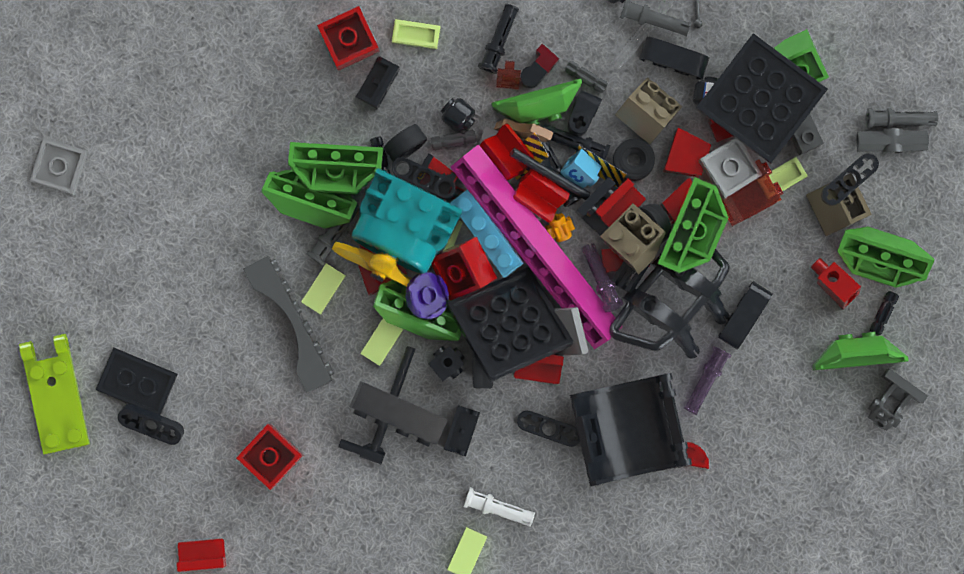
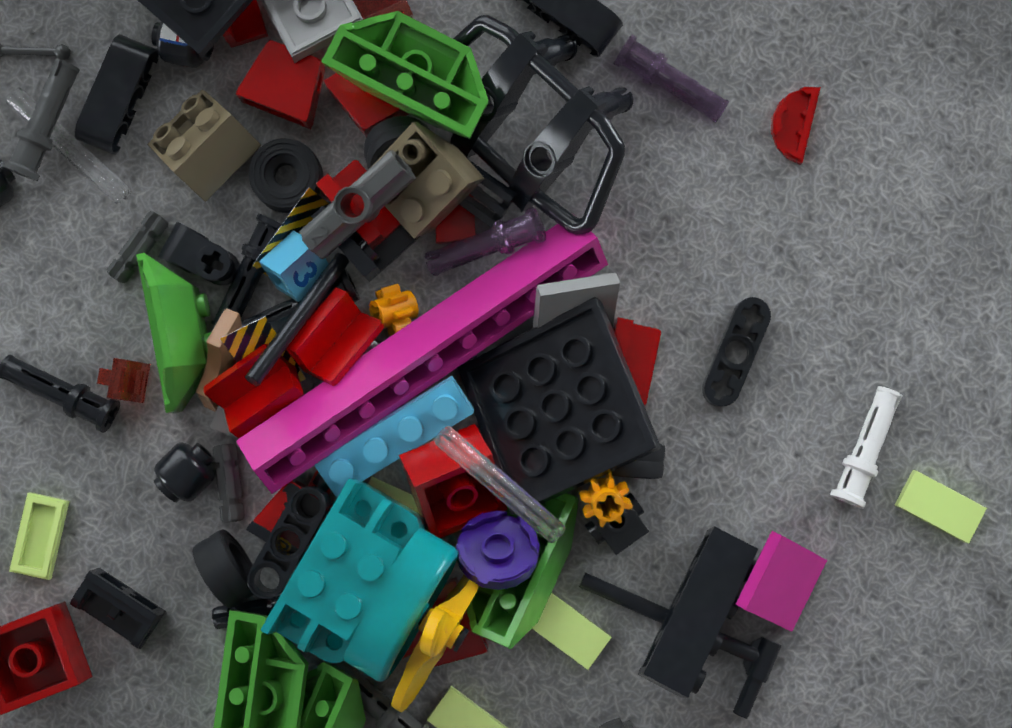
camera: 90 degrees left, 0 degrees up
(418, 460) = (781, 581): none -> dark pink tile
(454, 358) = (598, 492): none -> light orange gear
(461, 430) = (732, 502): black hinge -> none
(464, 294) = (499, 484): none -> clear axle
(534, 74) = (124, 335): leg -> none
(625, 212) = (375, 187): none -> dark grey piece
(629, 429) = (748, 211): black hinge -> none

